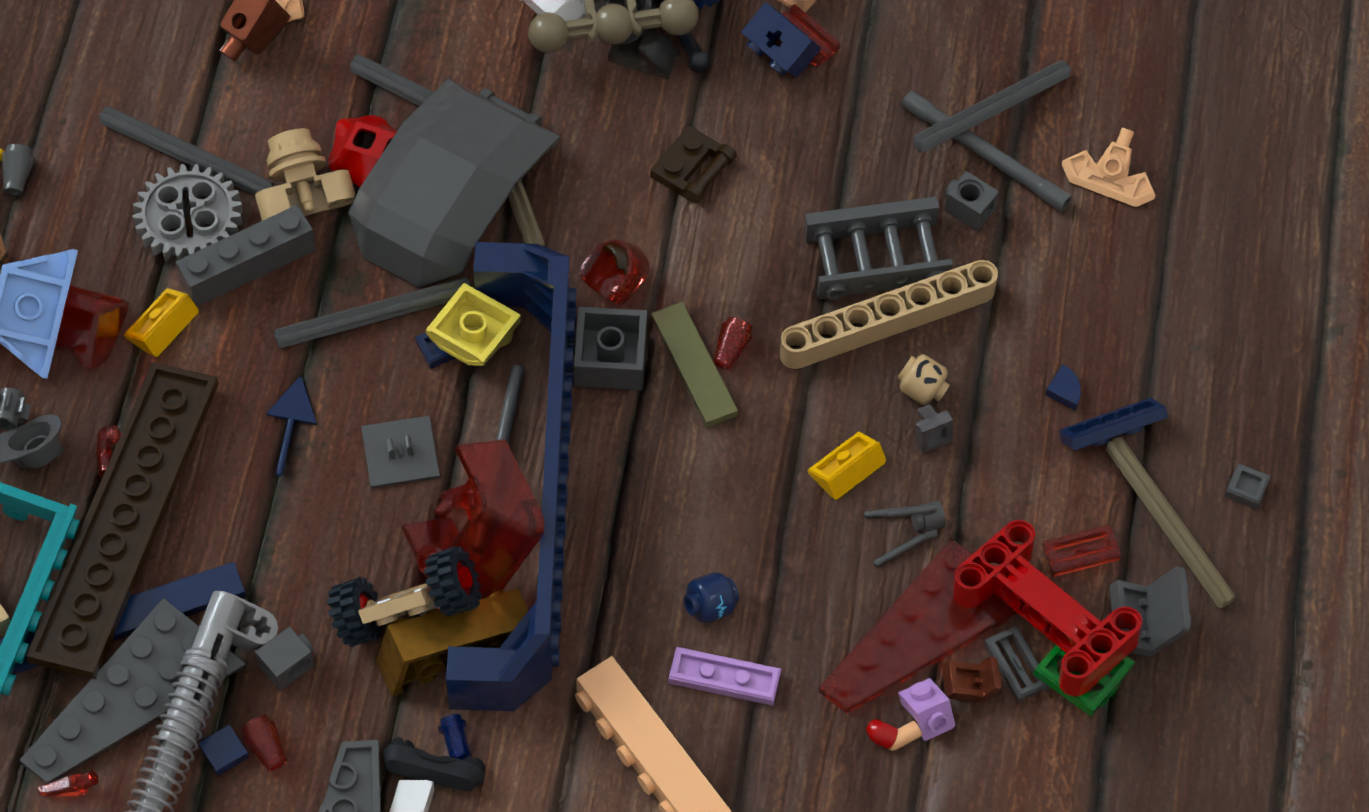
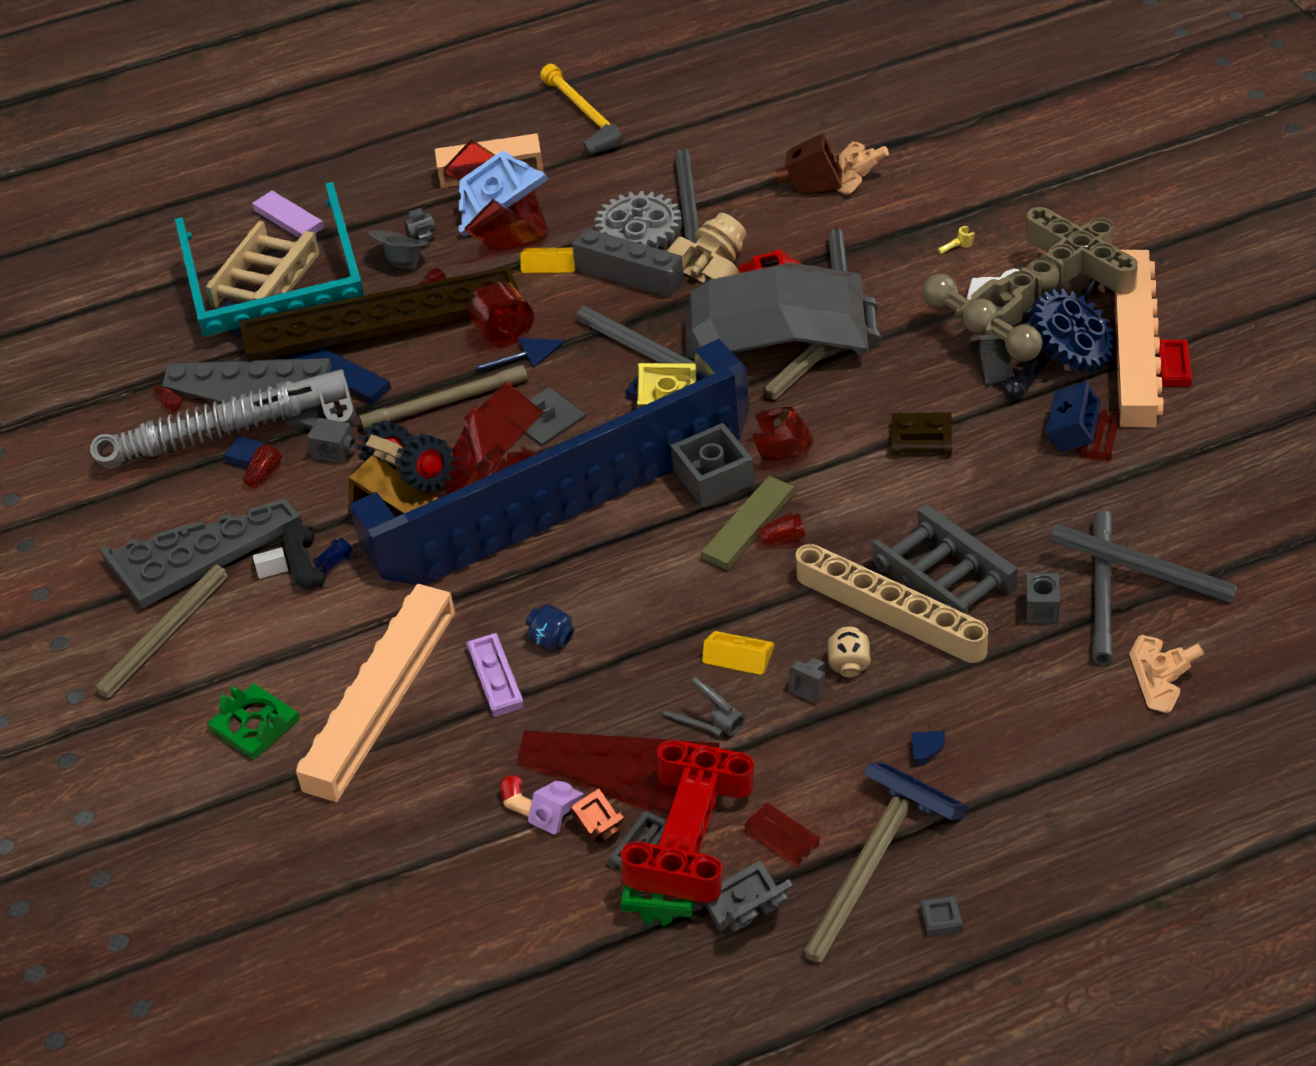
camera: 65 degrees right, 15 degrees down
(235, 407) = (500, 313): none -> clear red brick
(318, 460) = (512, 376): none -> dark tan piece

